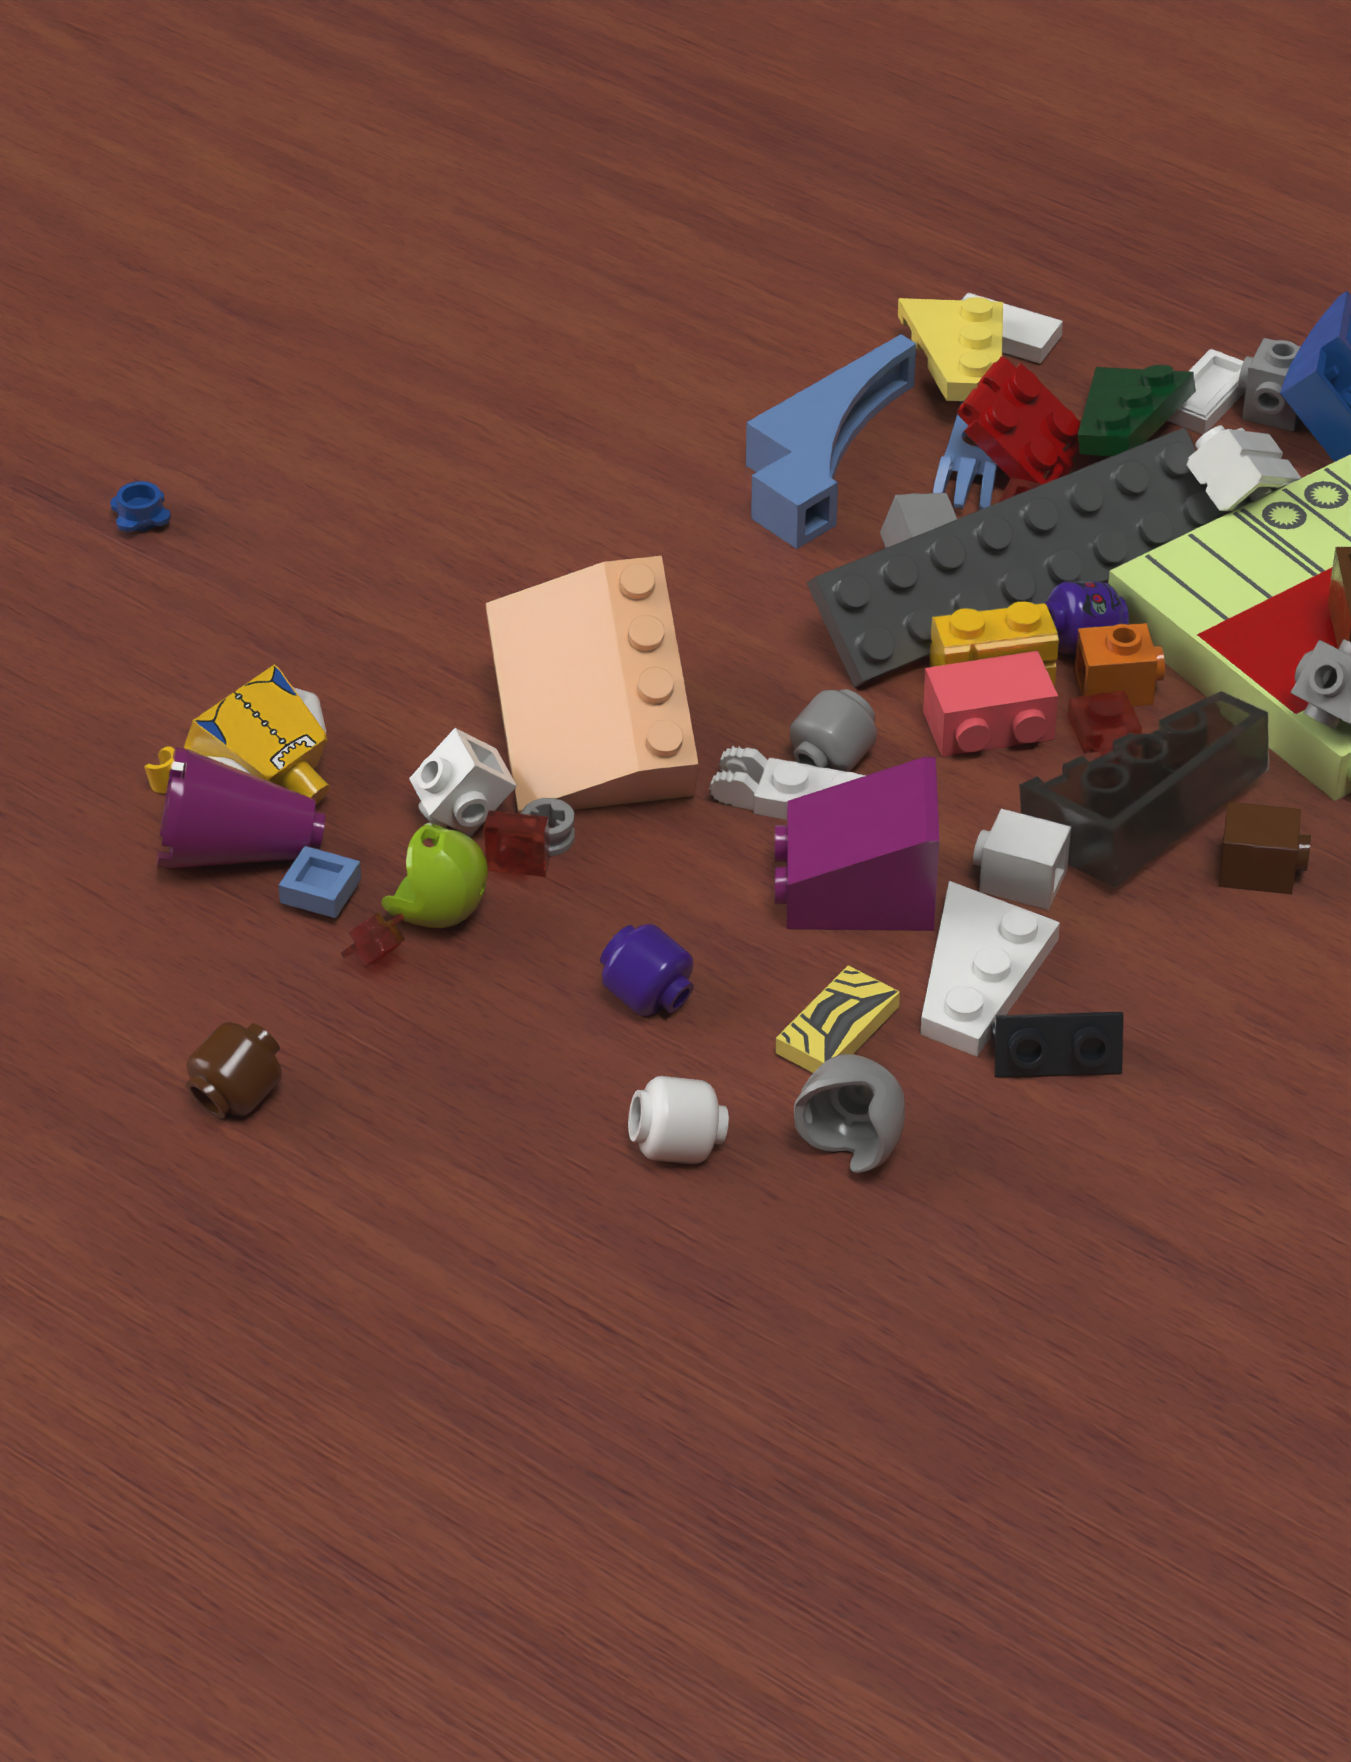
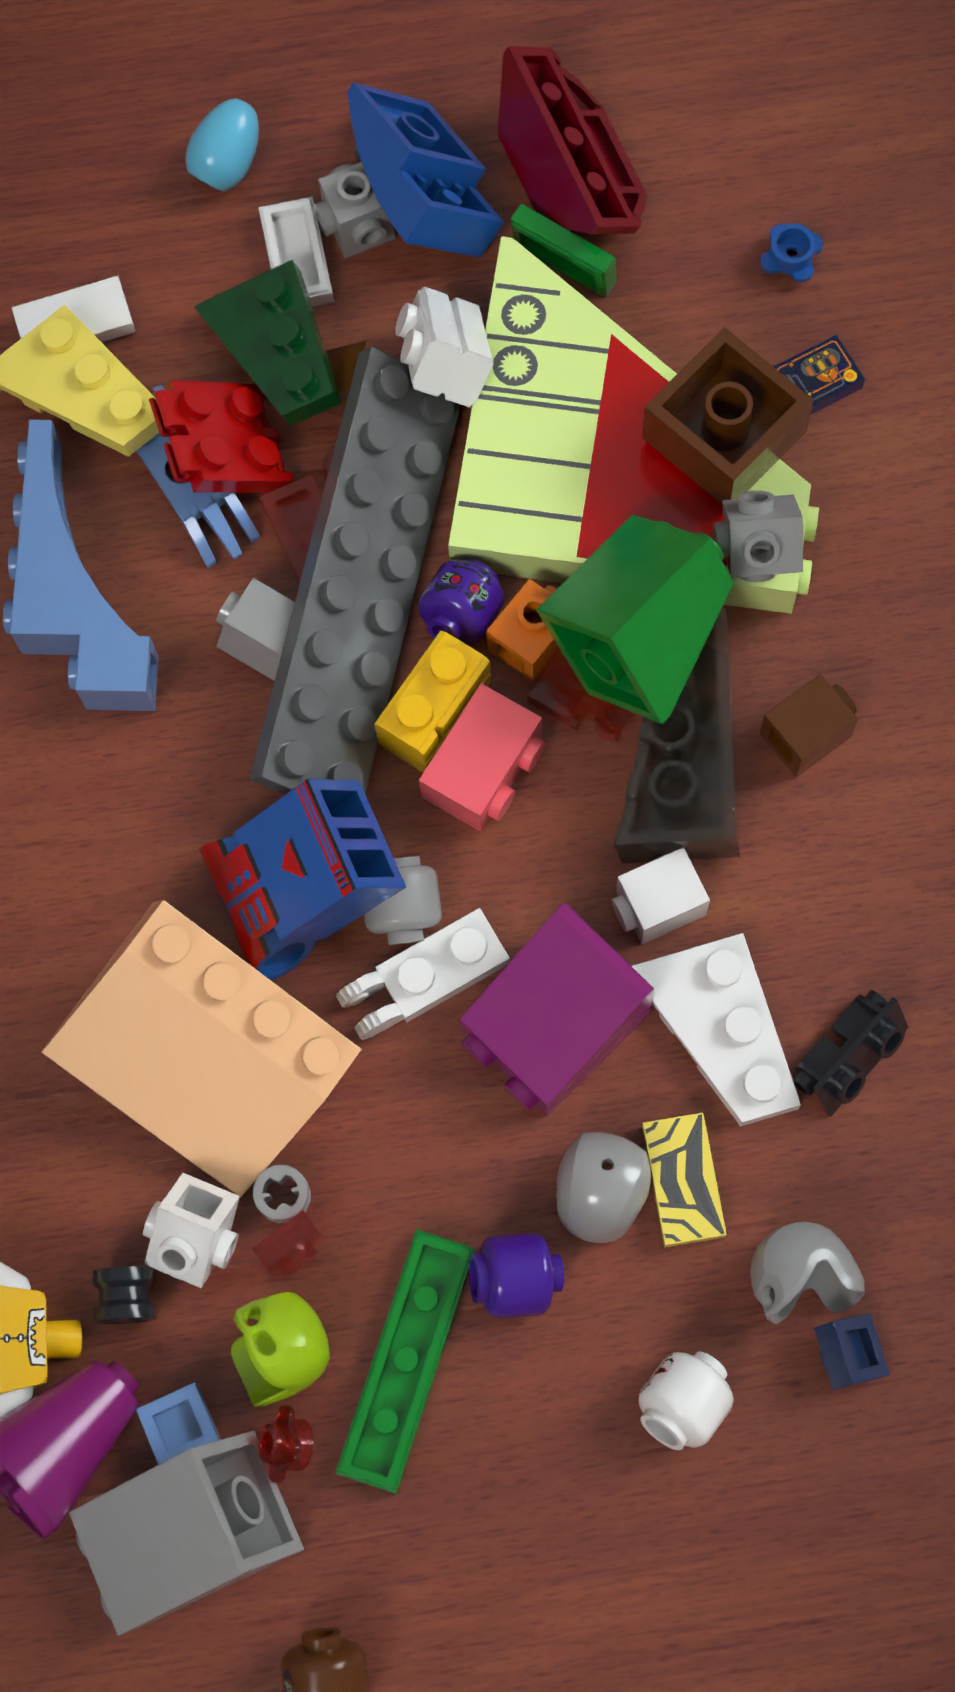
camera: 40 degrees left, 30 degrees up
(254, 924) = (184, 1531): none -> light grey slope
(375, 791) = (124, 1295): none -> black wheel
(504, 973) = (405, 1362): none -> green tile
(771, 964) = (597, 1201): none -> light grey helmet
(781, 653) = (302, 872): none -> blue piece
(834, 1188) = (851, 1351): none -> dark blue plate
(1190, 658) = (639, 614): none -> green slope
(1224, 299) = (224, 145): none -> medium azure animal

